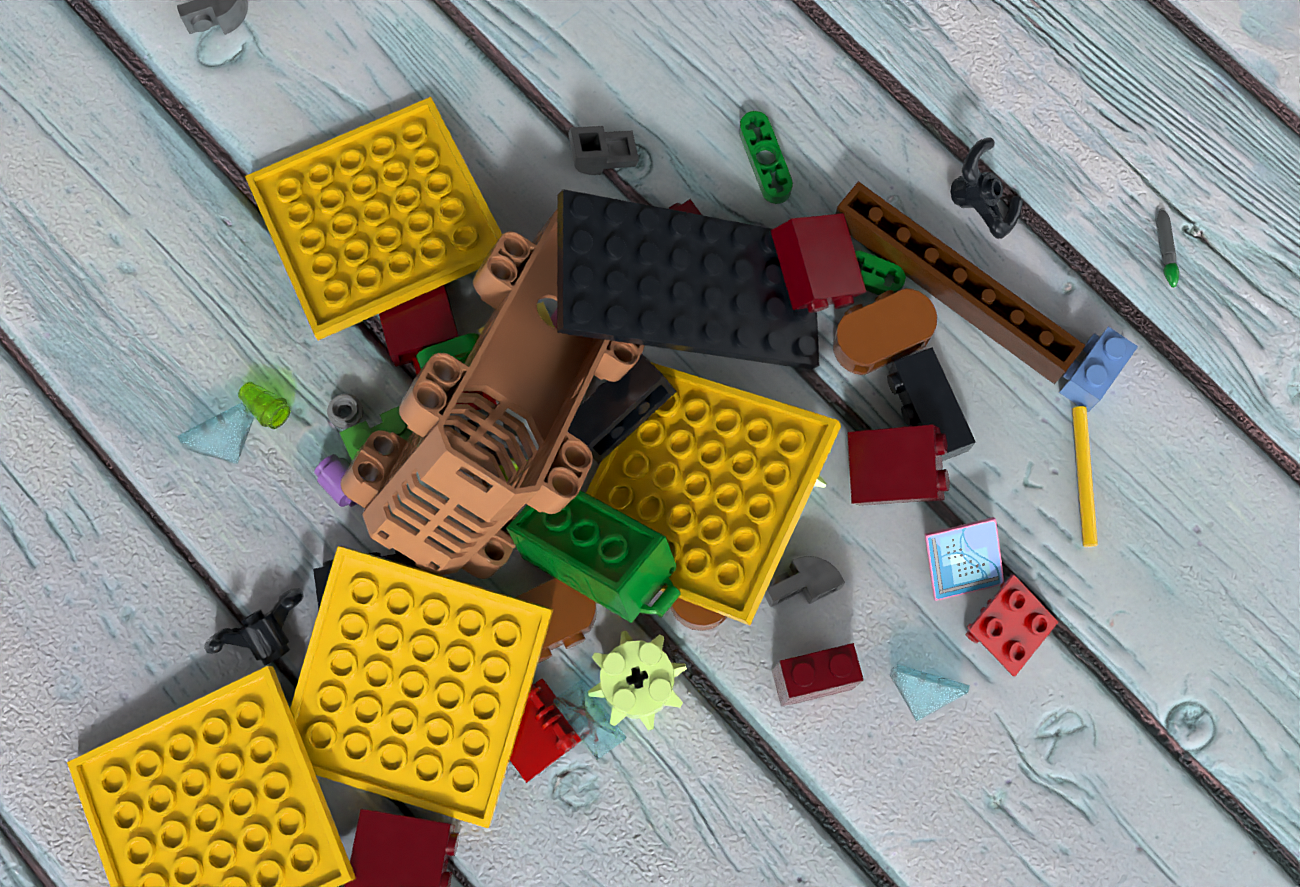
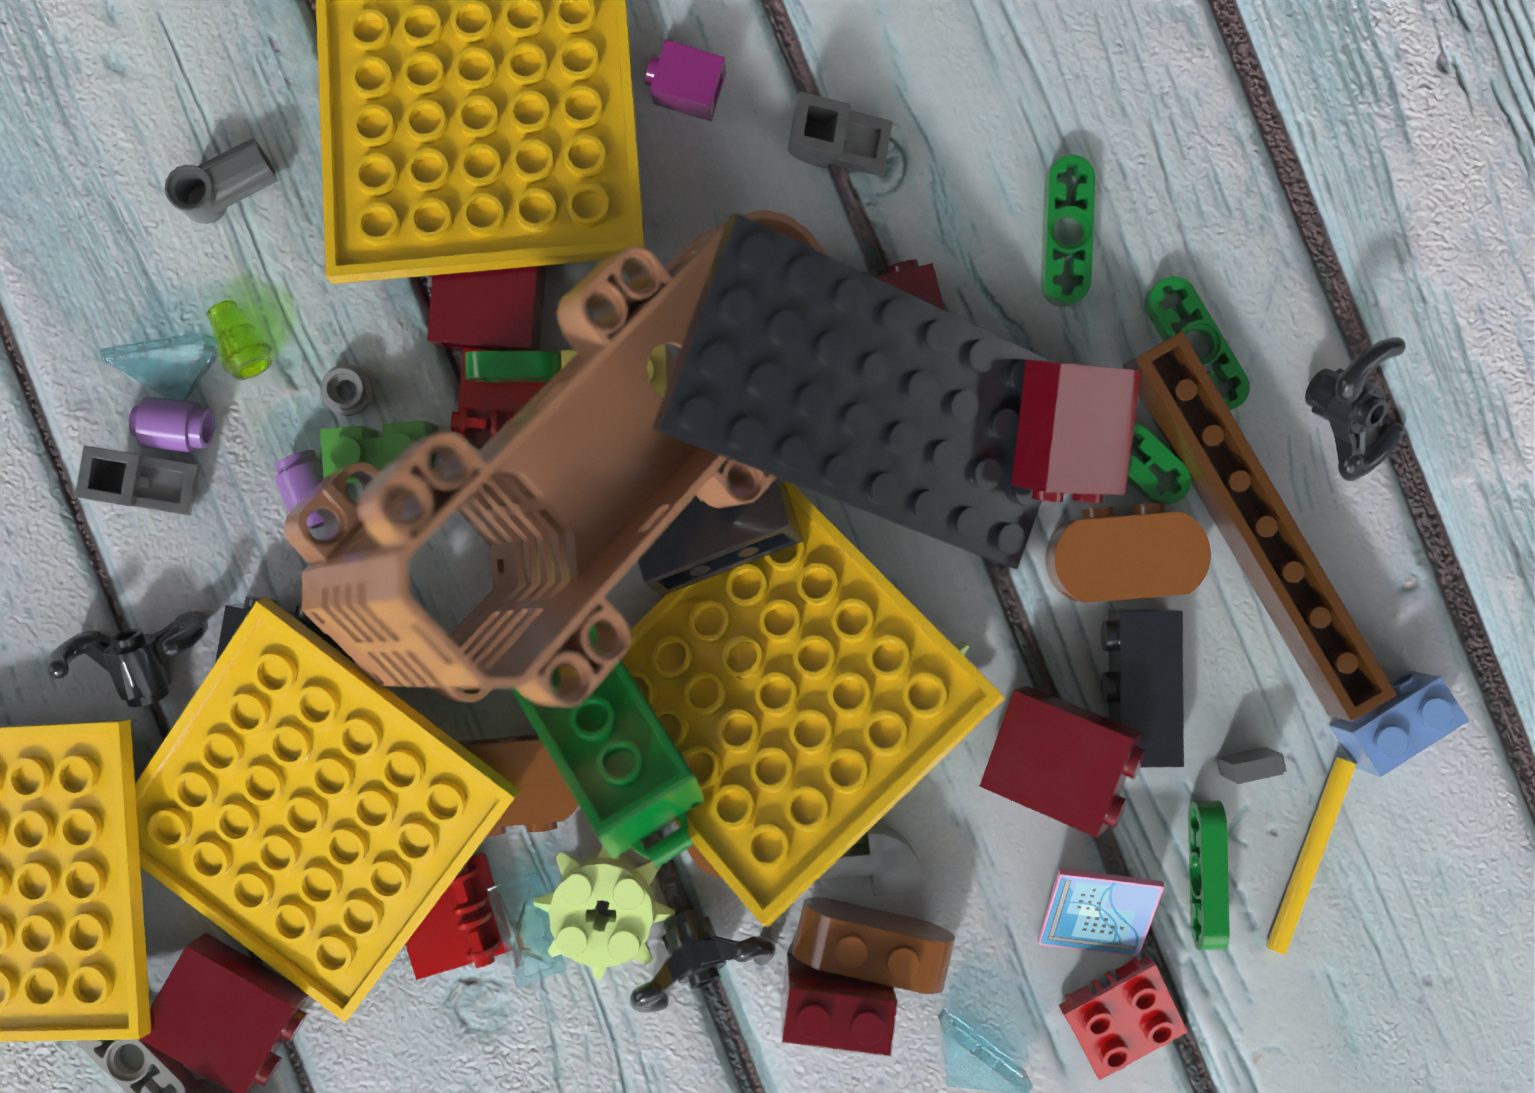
camera: 25 degrees right, 15 degrees up
(221, 514) = (136, 480): none -> flat silver brick
(223, 308) = (226, 180): none -> dark grey piece
(237, 472) = (171, 424): none -> medium lavender brick
(496, 151) = (686, 79): none -> magenta brick
(713, 688) = (696, 958): none -> black piece
(824, 630) = (873, 945): none -> dark orange brick
(870, 179) = (1205, 324): none -> green beam
(1019, 430) = (1252, 765): none -> dark grey tile
(1024, 510) = (1208, 875): none -> green beam

